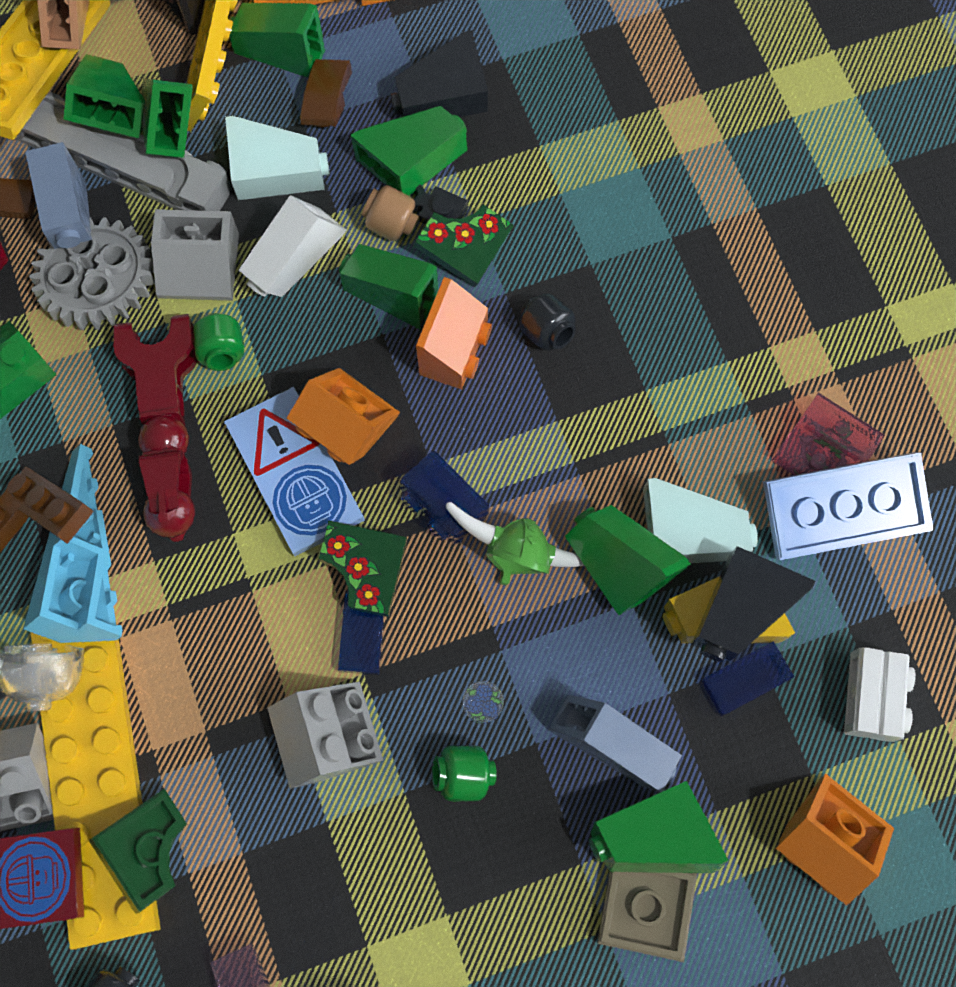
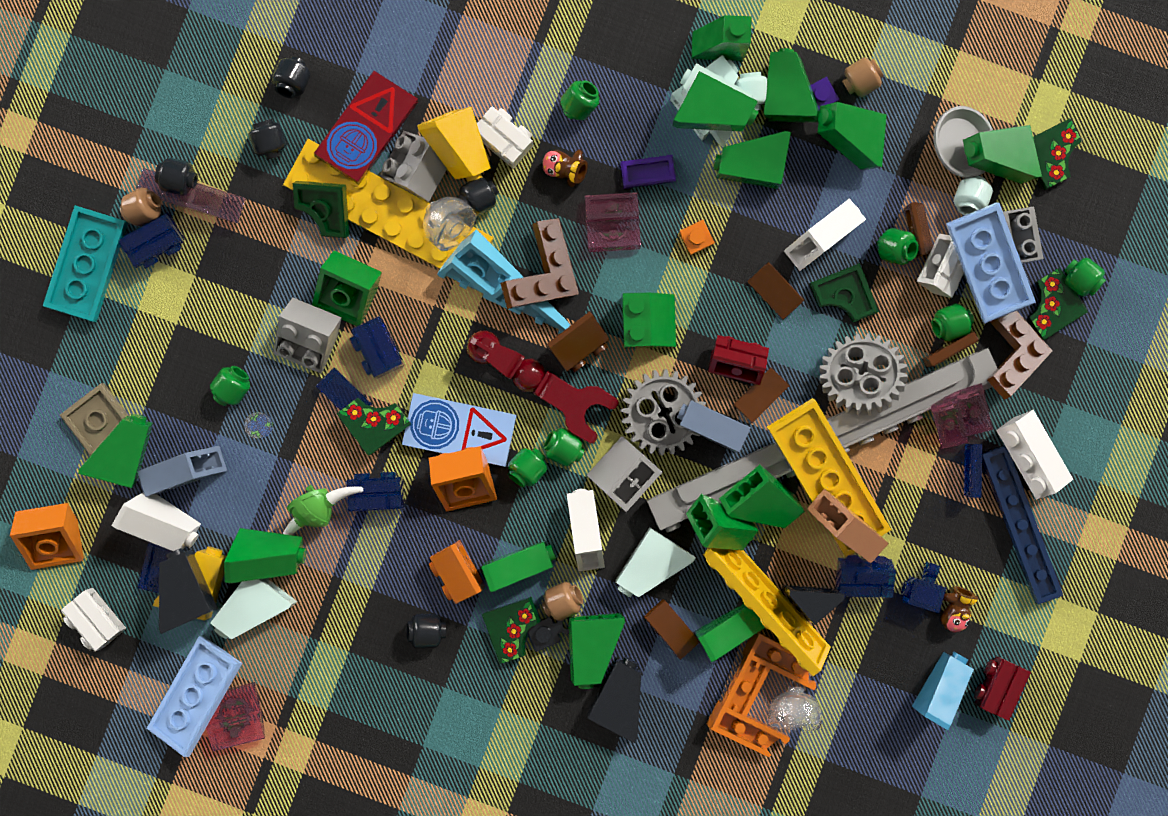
camera: 135 degrees right, 15 degrees up
(79, 416) = (578, 343): none -> reddish brown slope
(226, 734) = (346, 288): none -> green slope
(272, 636) = (376, 347): none -> clear blue brick
(273, 361) = (527, 467): none -> green head
(698, 712) = (157, 522): none -> white slope

